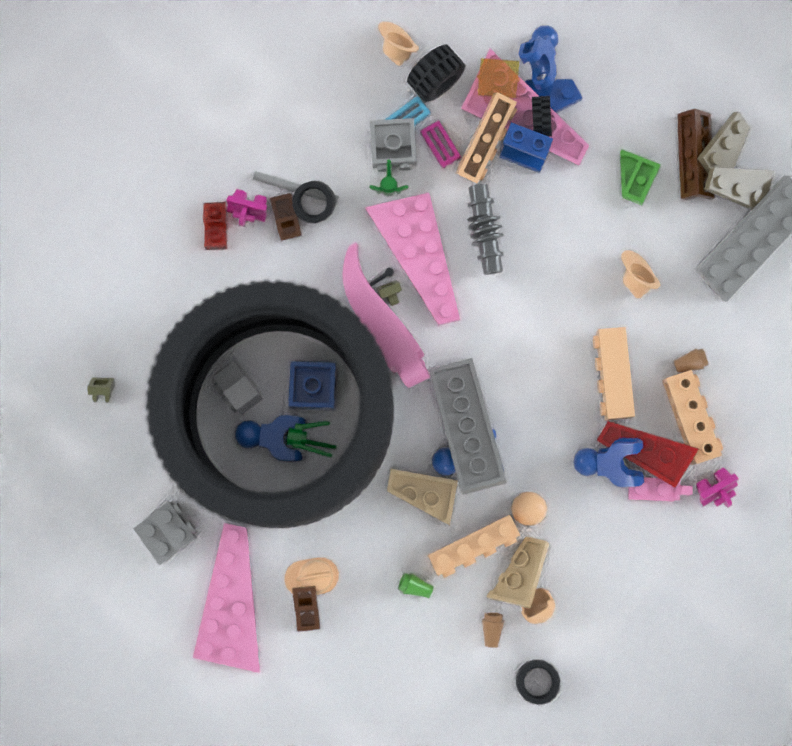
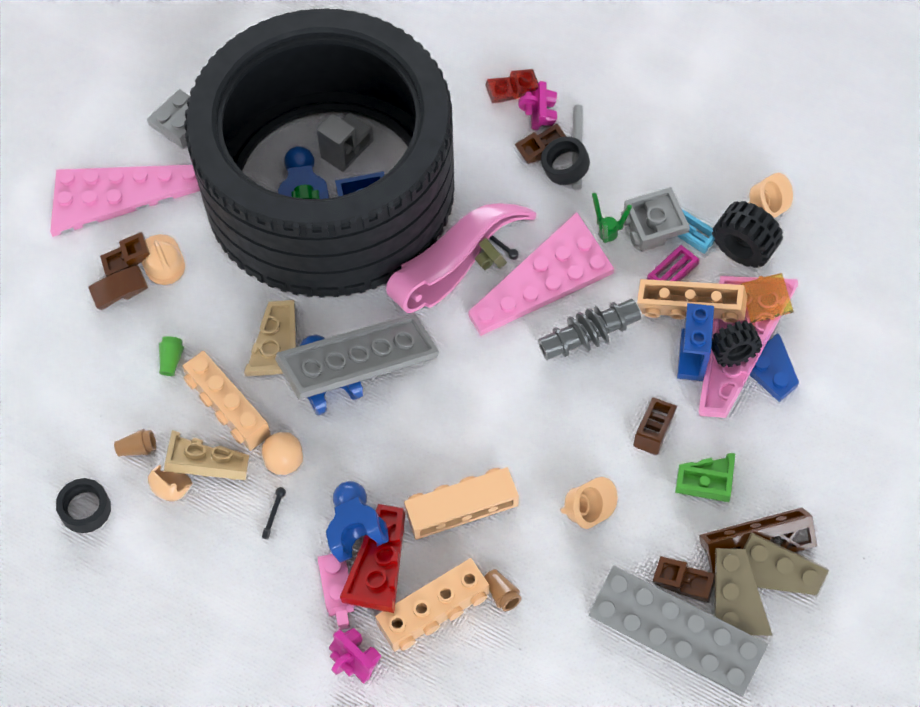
camera: 75 degrees right, 20 degrees down
(335, 620) = (119, 285): none -> reddish brown slope
(541, 55) = (811, 334): blue piece -> none
(563, 517) = (280, 492): none -> black hinge
(582, 214) = (647, 439): none -> reddish brown slope
(714, 220) = (684, 580): none -> reddish brown slope

